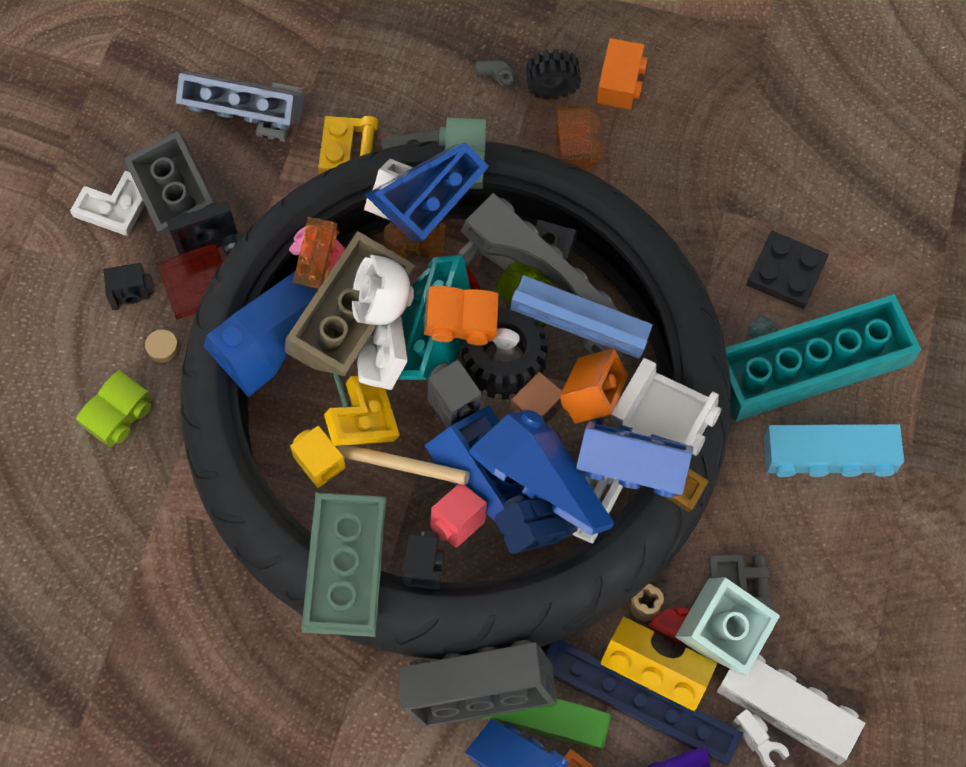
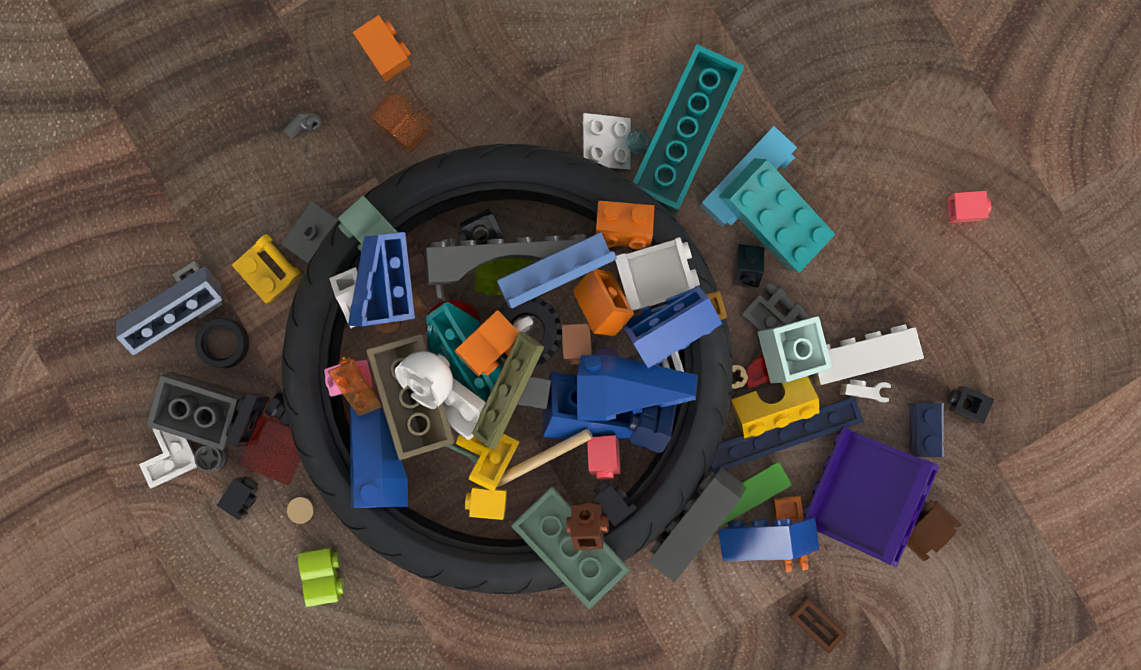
camera: 45 degrees left, 20 degrees up
(142, 235) = (204, 458): none -> dark grey wheel
(245, 143) = (201, 343): none -> black tyre
(378, 548) = (587, 526): none -> copper brick
(436, 363) = (507, 390): none -> olive tile
(553, 74) = (343, 94): black tyre -> none
(680, 348) = (625, 224): none -> orange bracket
(737, 304) = (606, 140): none -> white hinge
(757, 524) = (749, 265): none -> black bracket
(787, 269) = (612, 82): black plate -> none
(828, 497) = (776, 215): none -> teal brick

